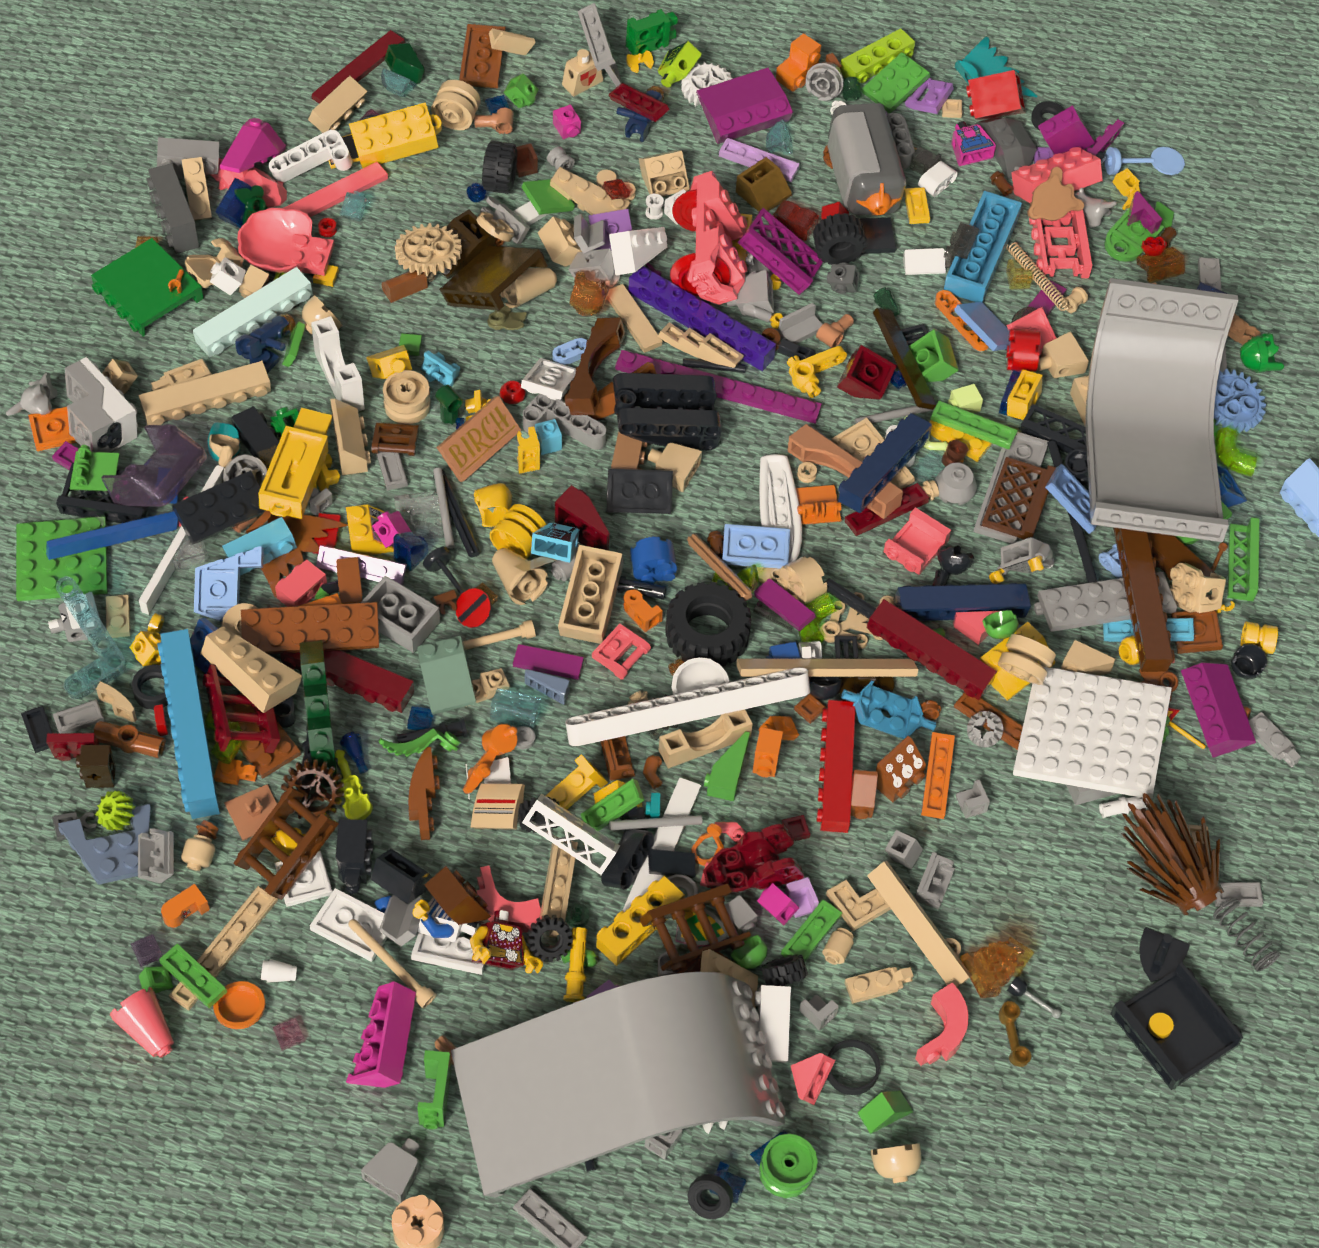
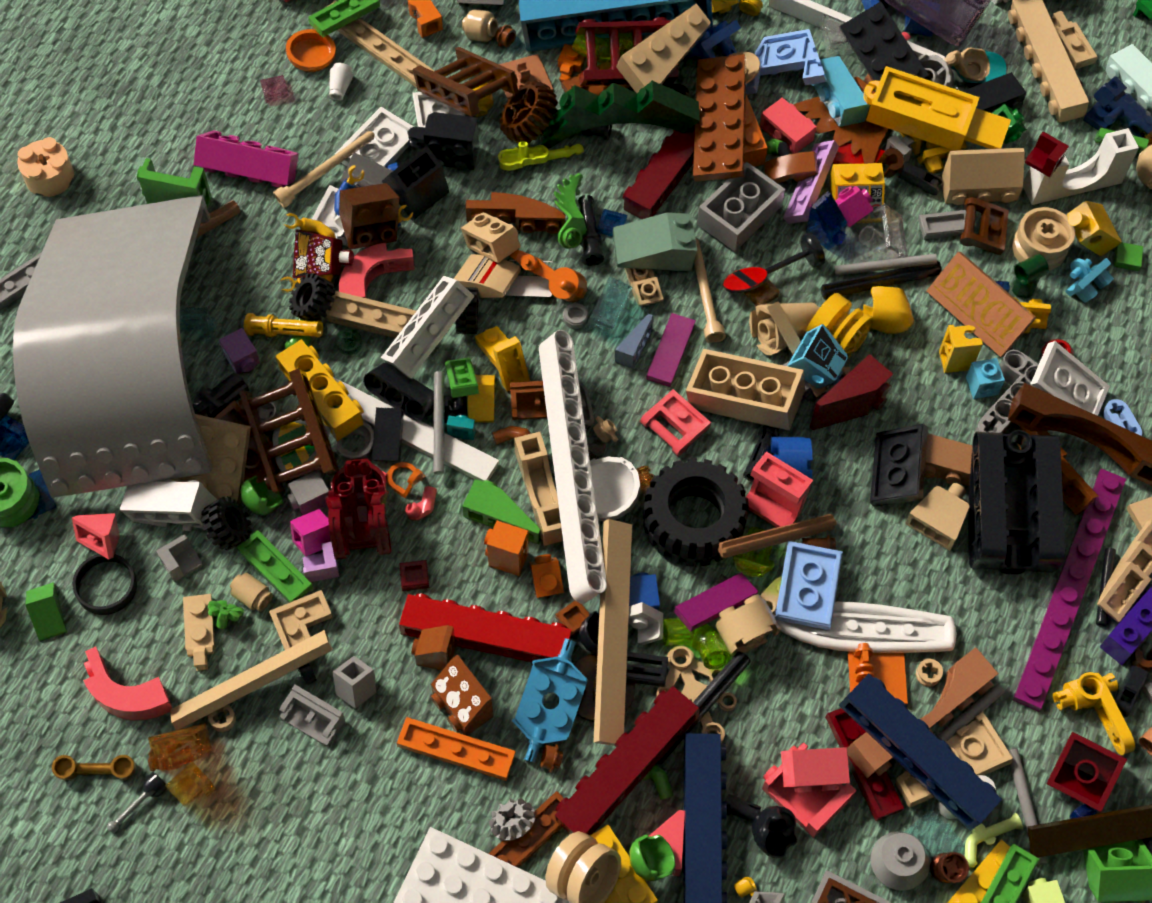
camera: 100 degrees right, 5 degrees up
(342, 498) = (922, 179): none -> black piece
(352, 373) = (1047, 154): none -> dark red panel
(353, 746) = (582, 159): clear blue cone -> none
(393, 1169) = (108, 155): light grey torso -> none
(444, 599) = (760, 253): reddish brown tile -> none
(458, 804) = (491, 237): none -> tan brick
(641, 611) = (730, 446): orange leg -> none
(682, 563) = (777, 491): none -> coral panel
(860, 962) = (224, 612): none -> bright green plant
(906, 530) = (815, 767): none -> coral brick
(931, 489) = (893, 823): tan plate -> none
(973, 800) = (413, 784): light grey panel -> none

